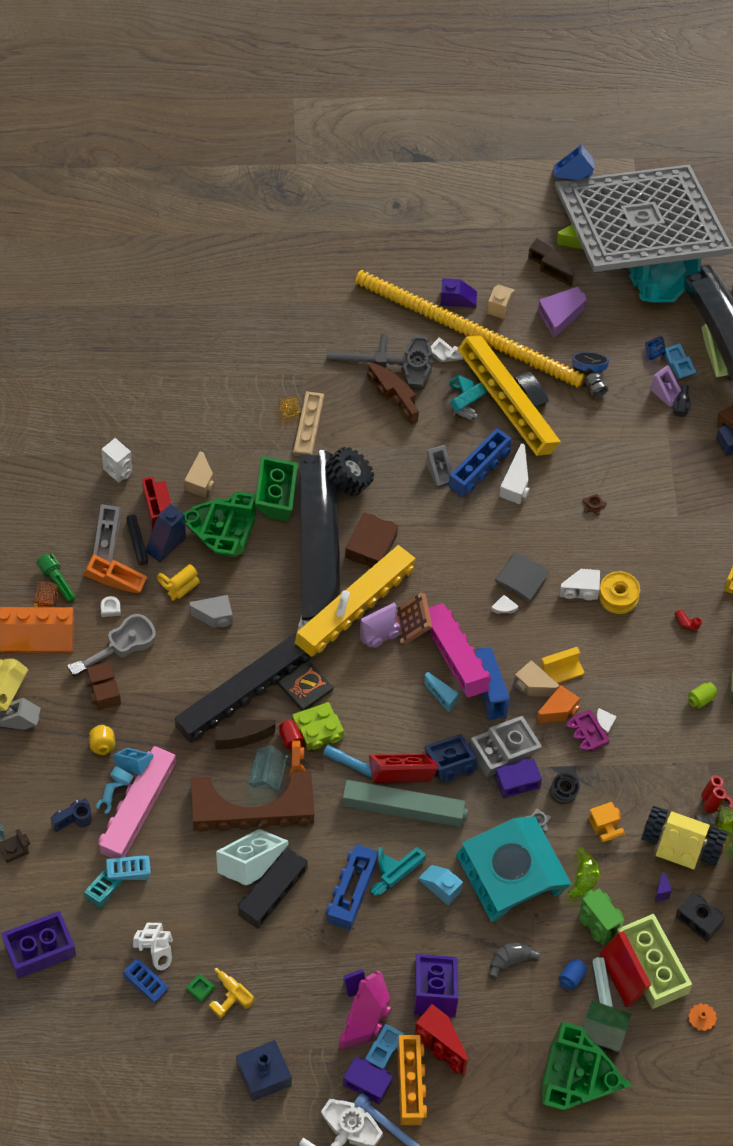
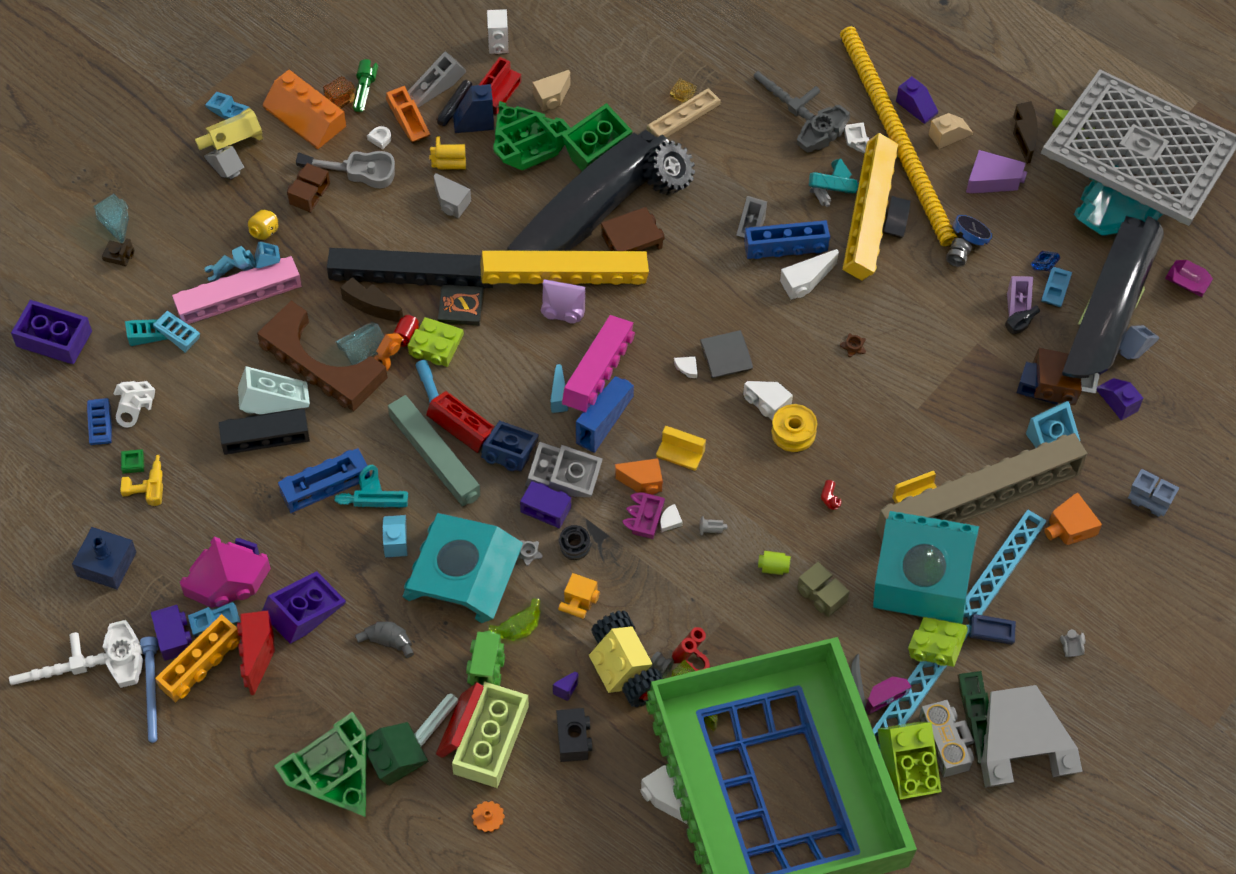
camera: 45 degrees right, 0 degrees up
(66, 817) = (187, 262): dark blue plate -> none
(342, 604) = (543, 258): white tile -> none
(393, 387) = (779, 137): reddish brown slope -> none
(413, 618) = (596, 316): tile -> none
(534, 681) = (642, 439): tan slope -> none
(572, 974) = (417, 690): blue brick -> none
(575, 165) = (1132, 68): blue slope -> none
(633, 706) = (711, 526): none -> light grey piece

